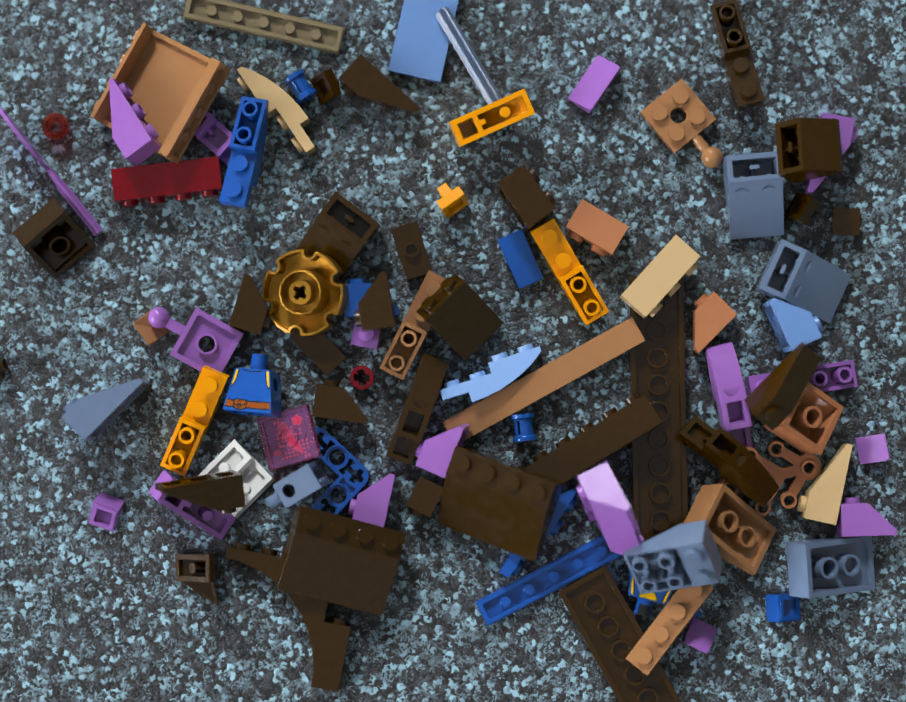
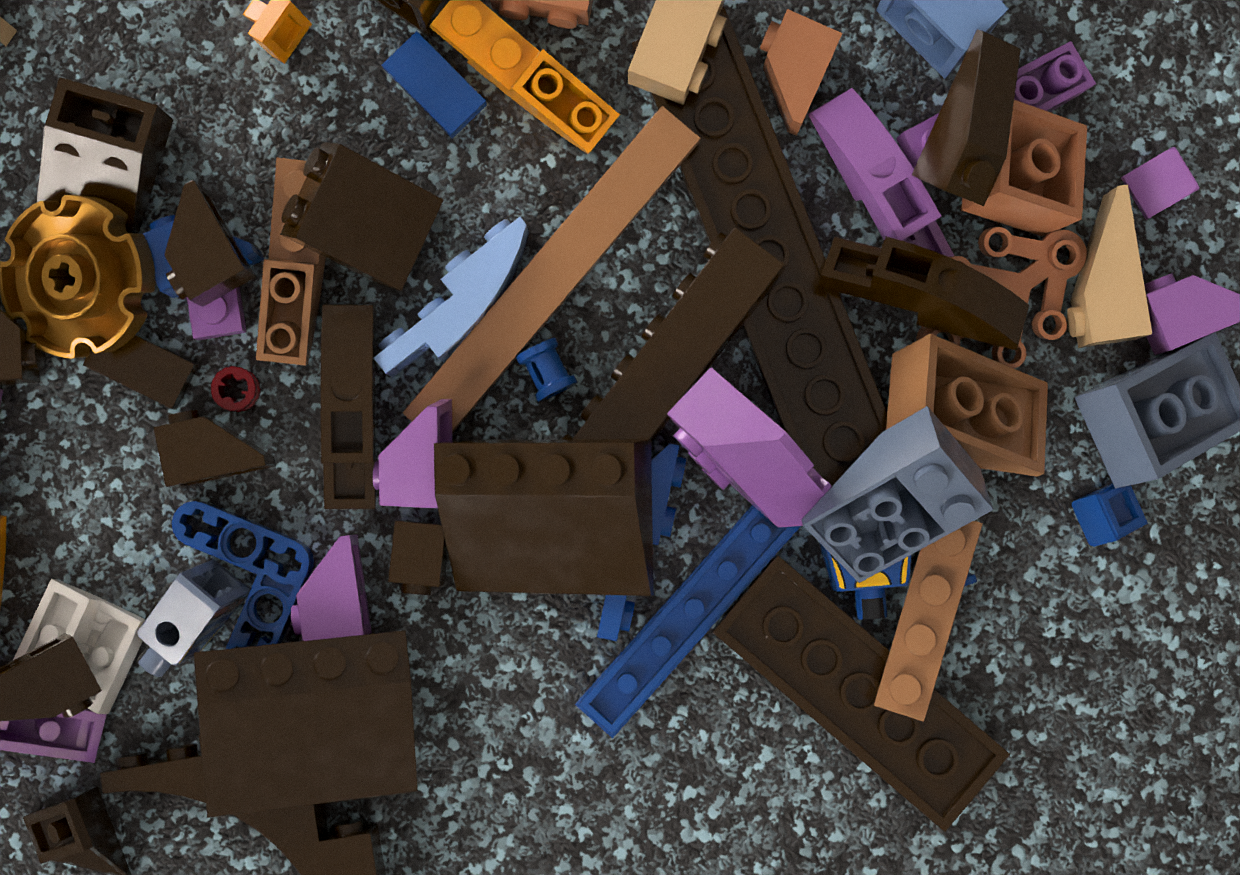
camera: 25 degrees left, 0 degrees up
(254, 390) = (51, 480): blue torso -> none
(289, 438) = (143, 540): clear pink tile -> none
(411, 250) = (240, 138): dark brown plate -> none
(700, 635) = (986, 615): medium lavender slope -> none

